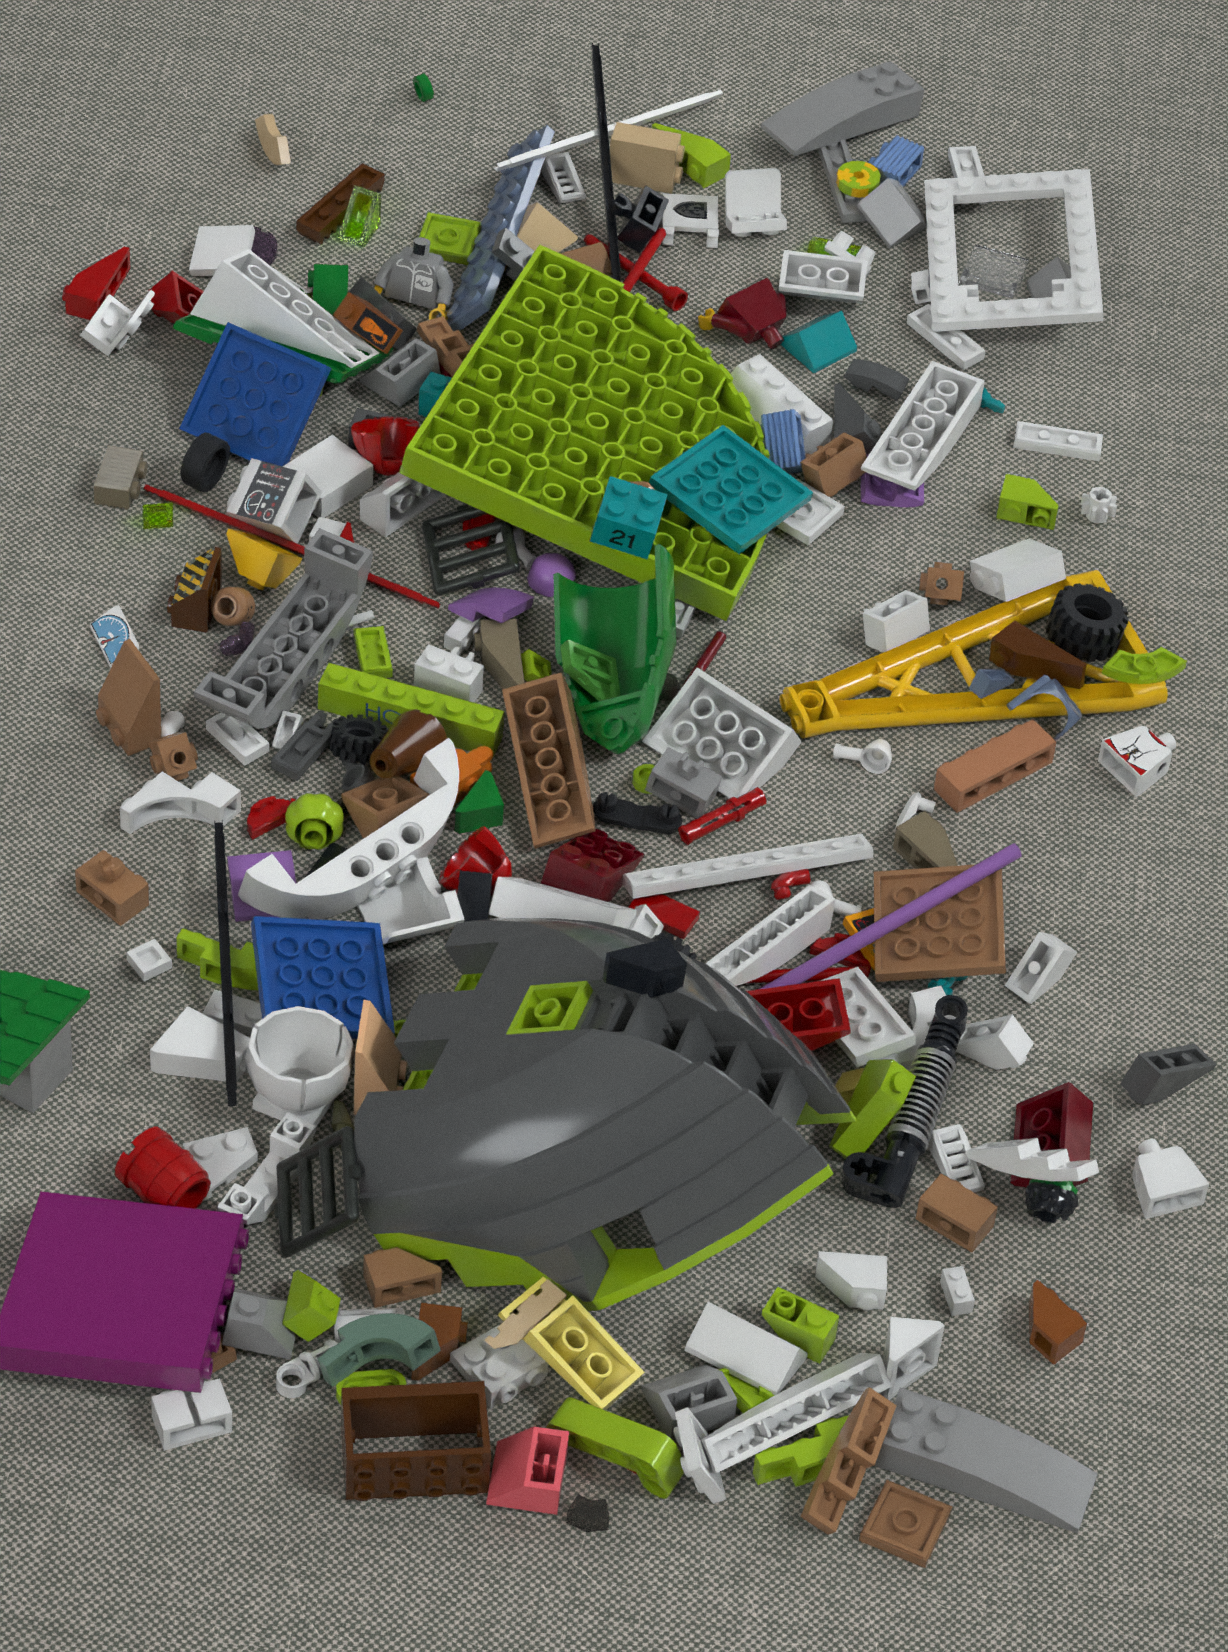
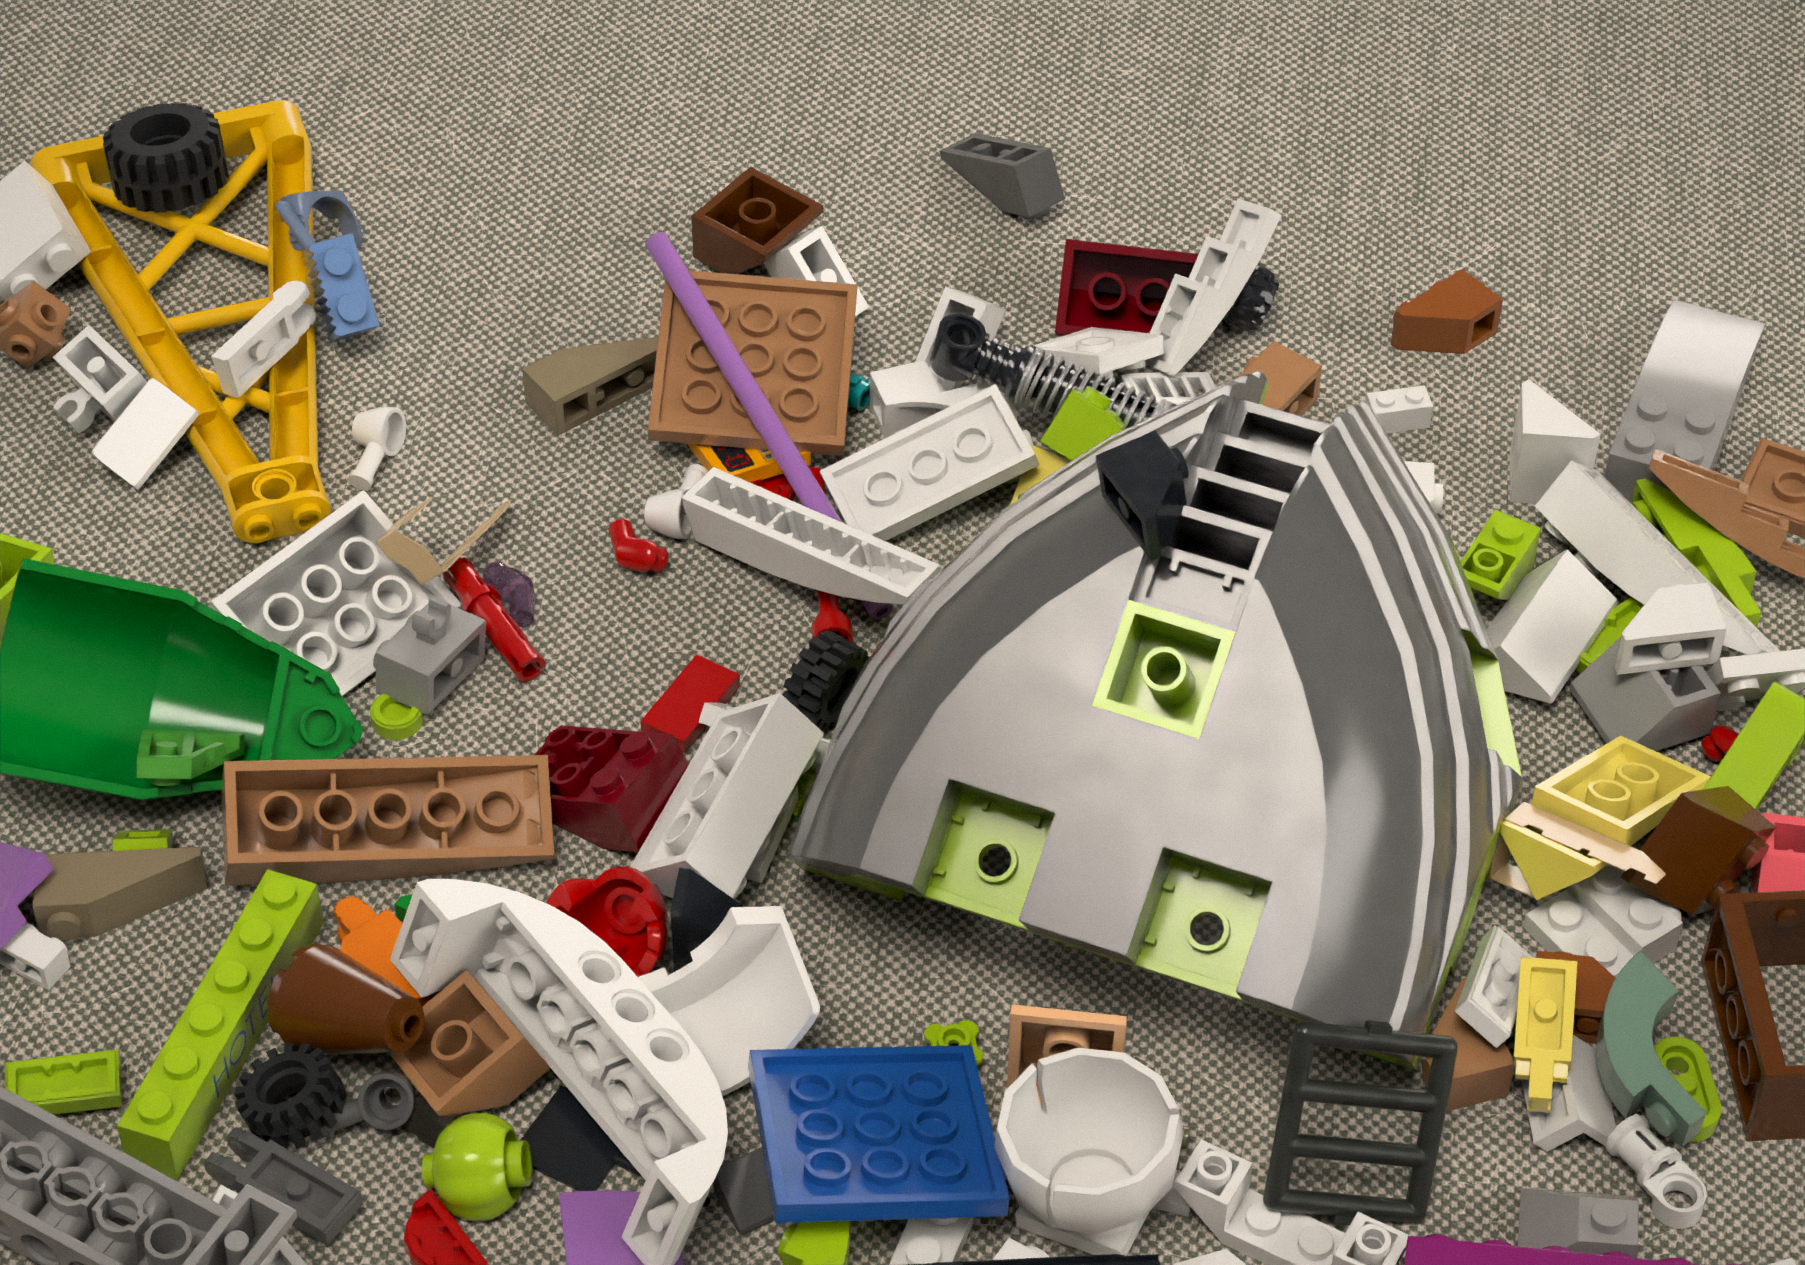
camera: 85 degrees left, 0 degrees up
(309, 1307) = (1551, 1153): lime slope -> none
(395, 1296) = (1544, 1026): none -> light yellow hinge
(434, 1282) = (1492, 987): none -> white tile
(449, 673) = (146, 964): white brick -> none
(534, 1388) = (1703, 848): none -> reddish brown slope
(627, 814) = (489, 711): black piece -> none
(714, 1385) = (1673, 631): none -> white slope
(747, 866) = (607, 591): white tile -> none
(750, 827) = (514, 589): none -> clear purple arm
(776, 753) = (417, 557): none -> tan piece
(808, 1010) = (939, 504): red slope -> none
(855, 641) = (144, 433): none -> white slope
(915, 802) = (481, 400): white bar -> none
(928, 681) = (264, 339): none -> white hinge
(978, 1108) = (1105, 349): none -> white plate
(983, 717) = (341, 288): none -> medium blue brick
(989, 681) = (260, 277): sand blue piece -> none
(994, 765) = (421, 304): nougat brick -> none
(1032, 656) = (224, 222): reddish brown slope -> none
(1081, 923) = (749, 222): none -> reddish brown slope
(1137, 757) = (416, 152): white torso -> none
(1144, 668) = (258, 113): lime tile -> none
(1167, 1180) = (1189, 188): white torso -> none

